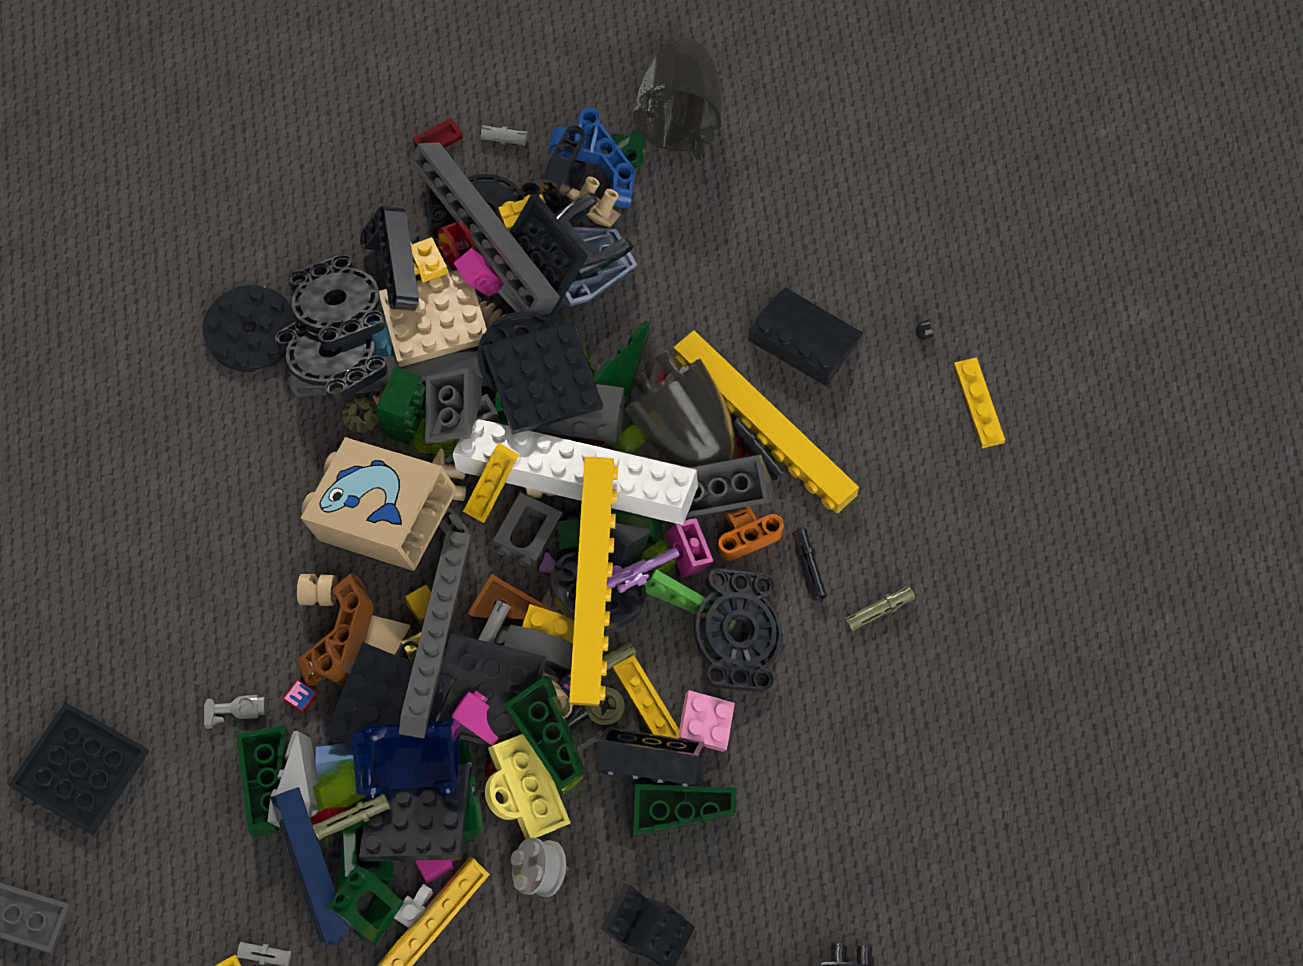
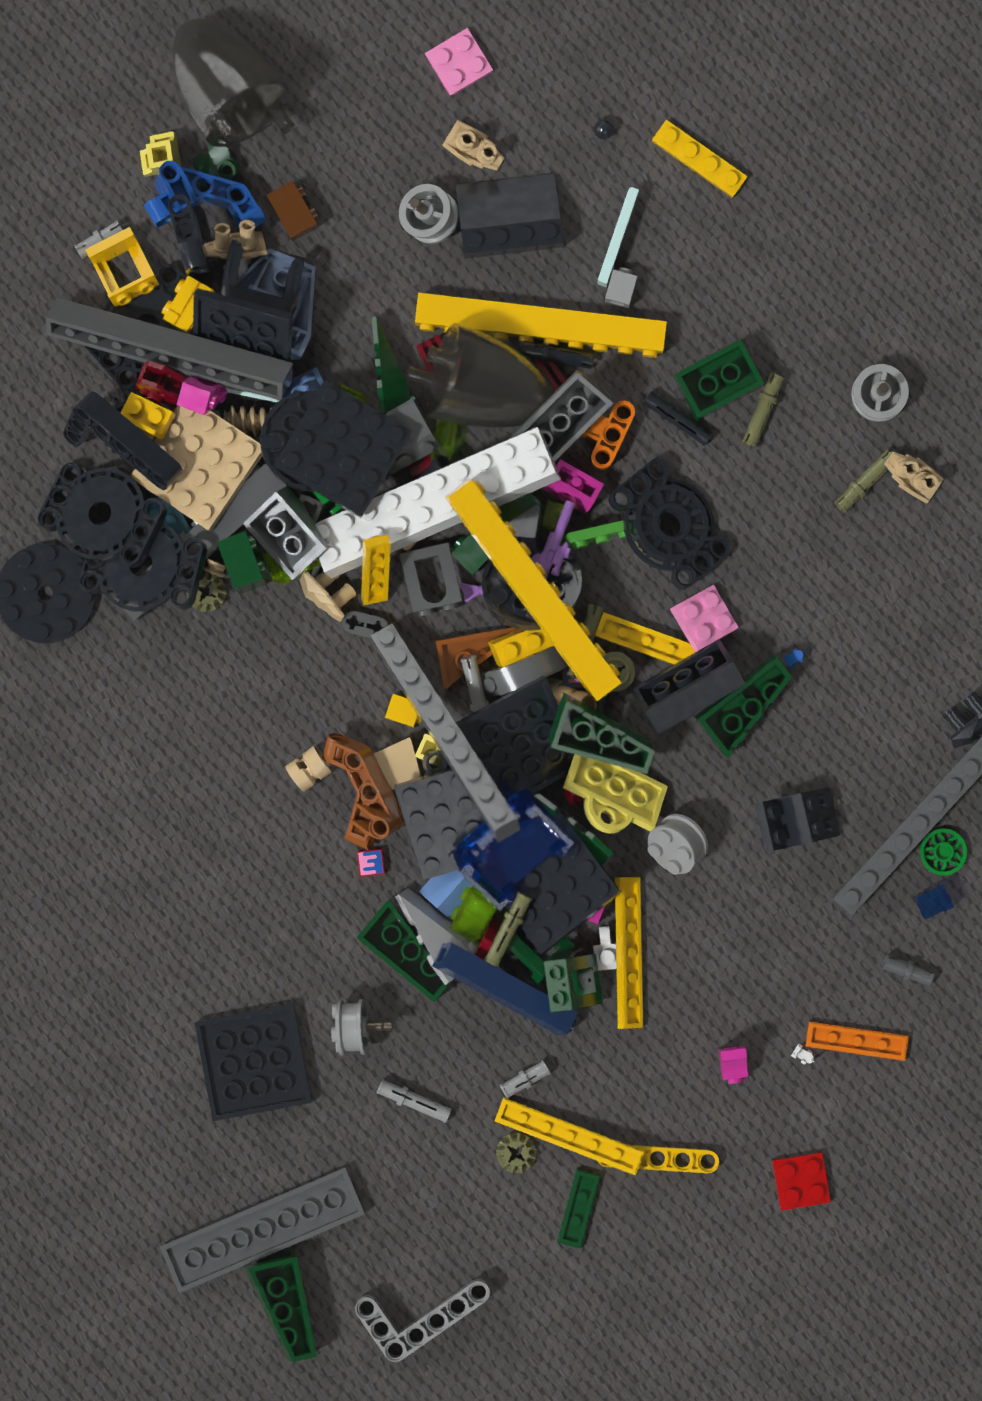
camera: 30 degrees left, 20 degrees up
(156, 872) = (386, 1088): none -> light grey pin
(173, 800) = (353, 1028): none -> light grey wheel
(241, 707) = (333, 909): light grey piece -> none
(378, 503) = (297, 661): tan brick -> none
(443, 133) = (44, 288): dark red tile -> none
(473, 715) = (528, 772): dark pink arch -> none
(503, 144) = (113, 247): none -> yellow panel
(605, 108) = (161, 149): none -> light yellow brick
(653, 215) = (293, 211): none -> reddish brown piece
(748, 285) = (428, 213): none -> light grey wheel
(751, 805) = (796, 656): none -> blue piece
(819, 271) = (472, 147): none -> tan connector
(845, 442) = (621, 287): none -> light grey brick
(857, 212) = (459, 62): none -> bright pink plate
(863, 559) = (718, 380): none -> dark green brick
(872, 406) = (618, 236): none -> light aqua tile
(912, 721) = (863, 483): none -> olive pin
(957, 746) = (914, 476): none -> tan connector
(980, 663) = (879, 392): none -> light grey wheel

